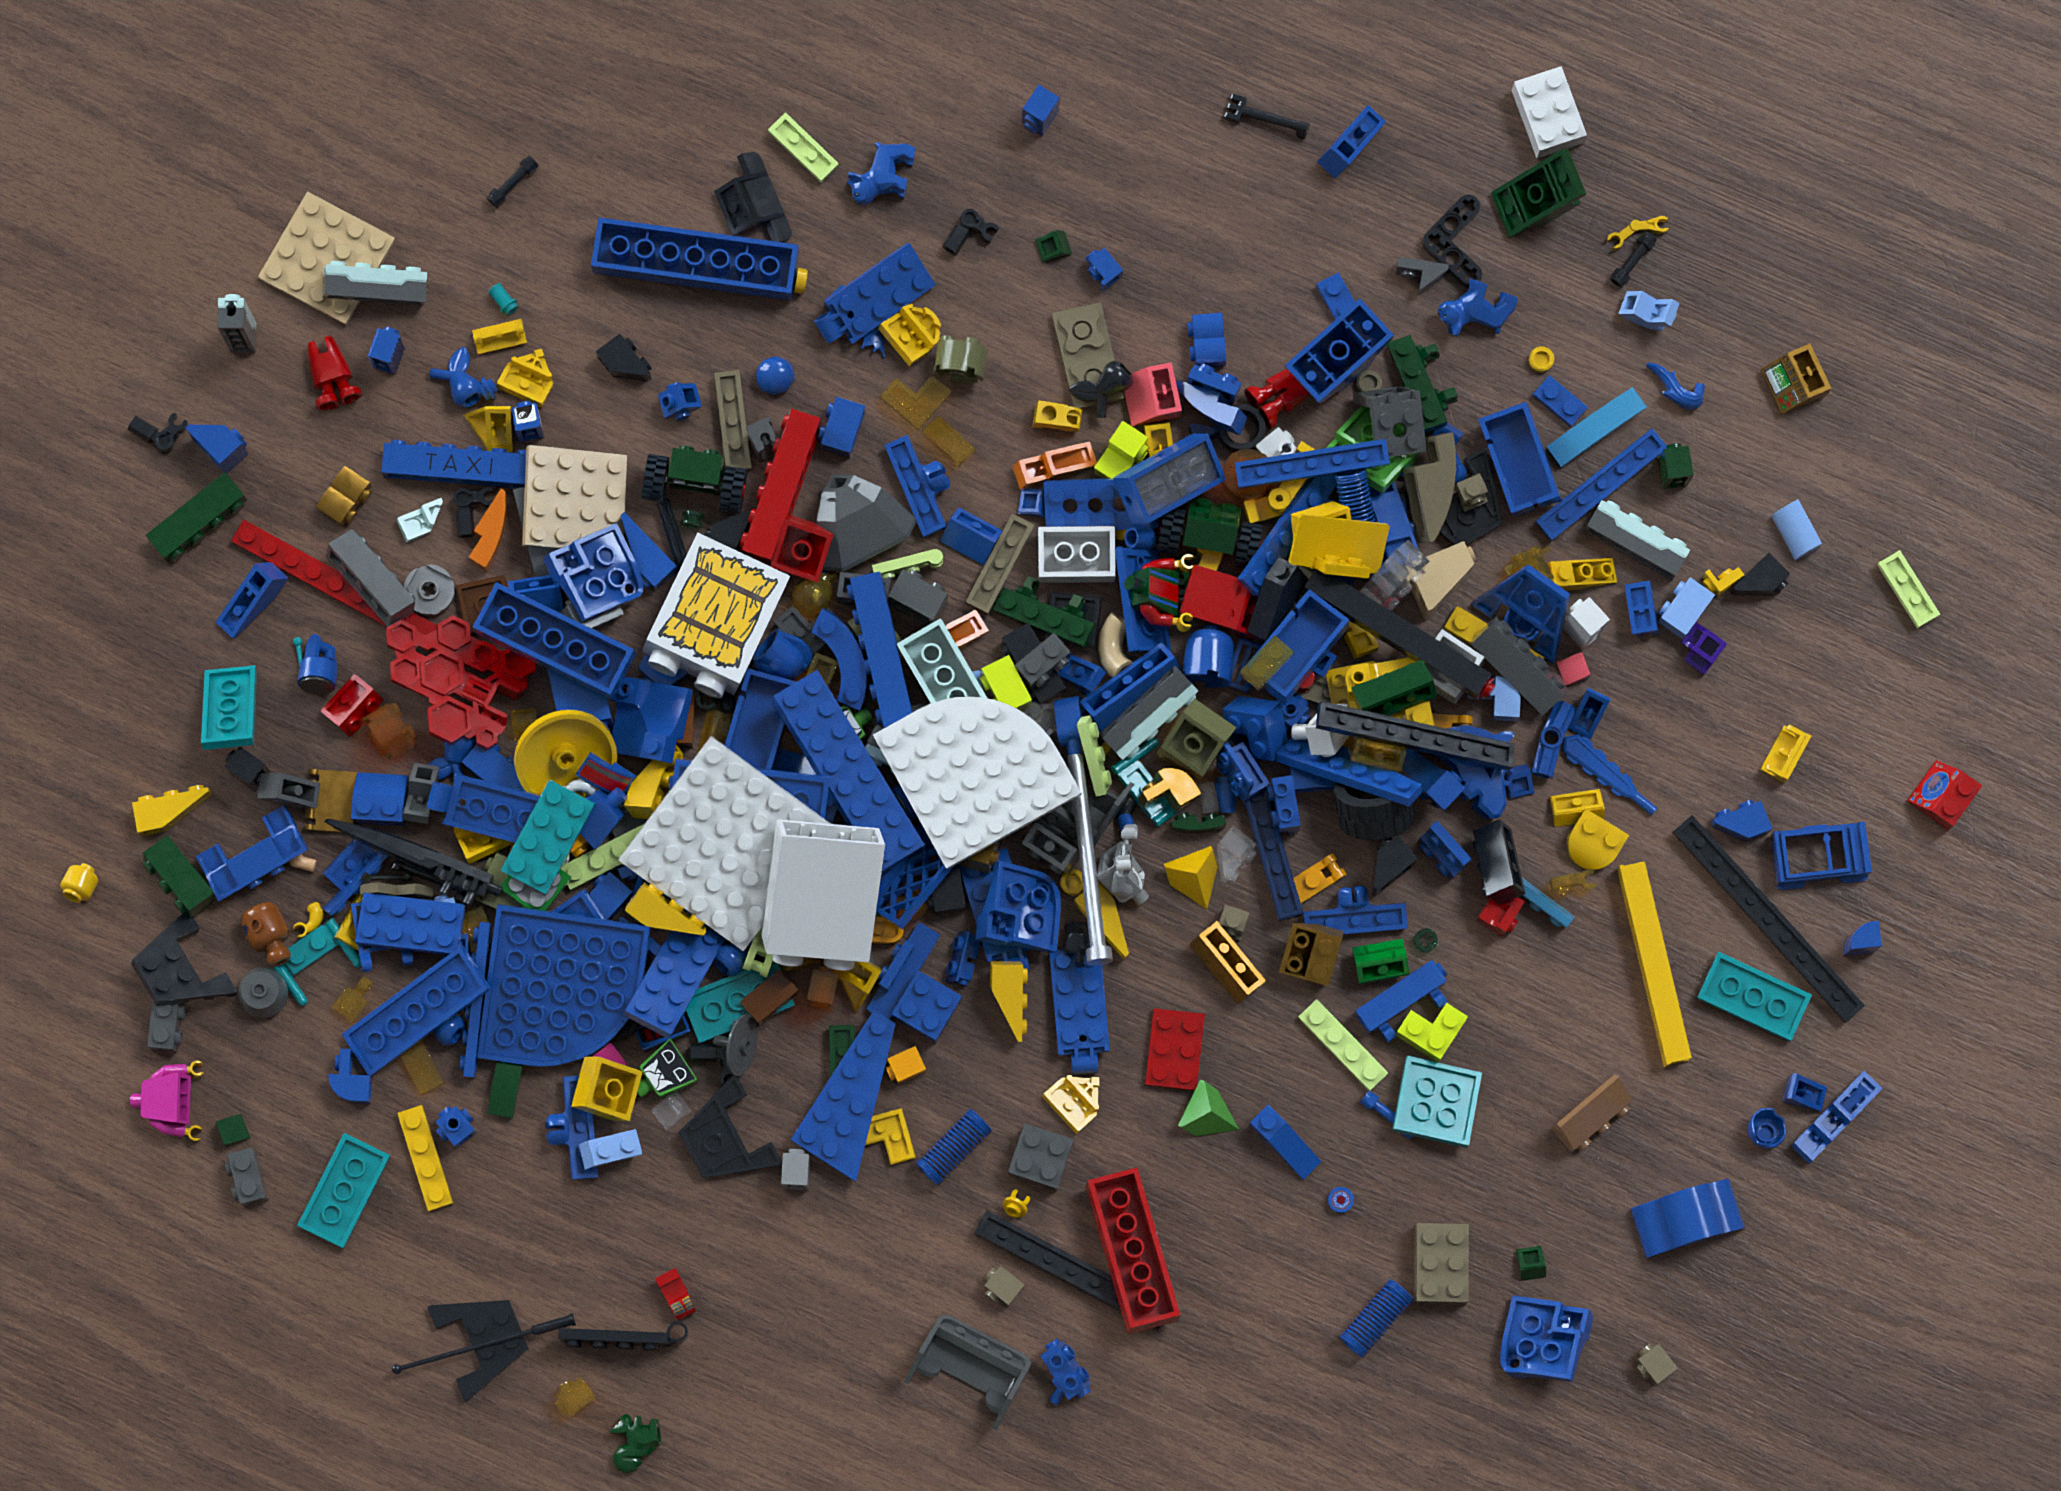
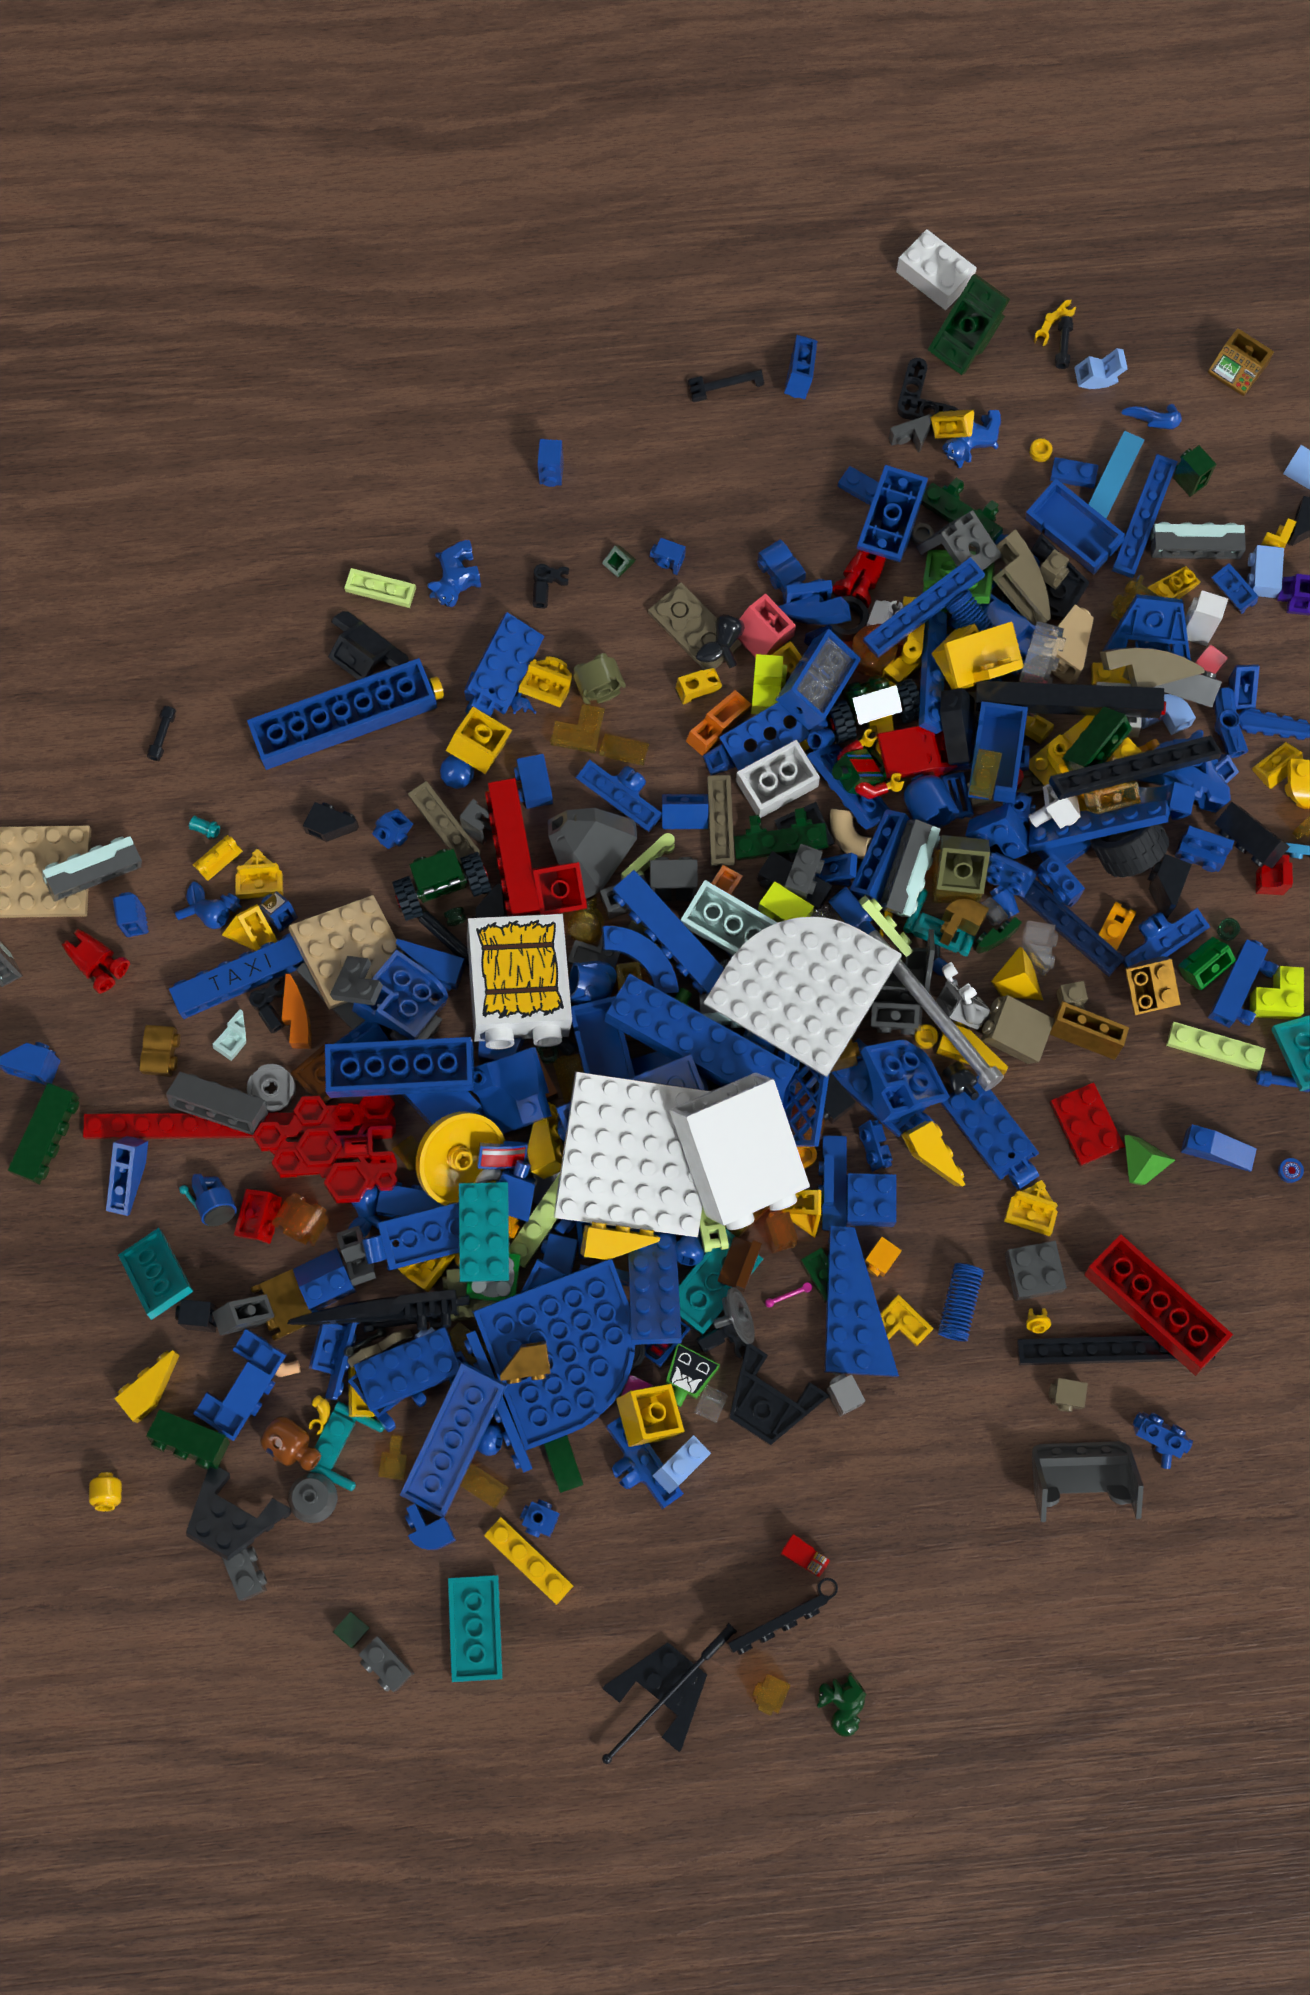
camera: 25 degrees left, 5 degrees down
(167, 1099) = (280, 1635): dark pink torso -> none
(522, 978) = (528, 1361): none -> pearl gold slope
(555, 534) = (353, 986): none -> dark grey plate
(810, 358) = (478, 740): none -> yellow brick
(821, 1054) = (807, 1287): none -> dark pink hinge
(1159, 923) = (1017, 1029): none -> dark tan brick
(1461, 287) = (953, 423): none -> yellow slope
(1496, 643) = (1150, 666): none -> dark tan slope

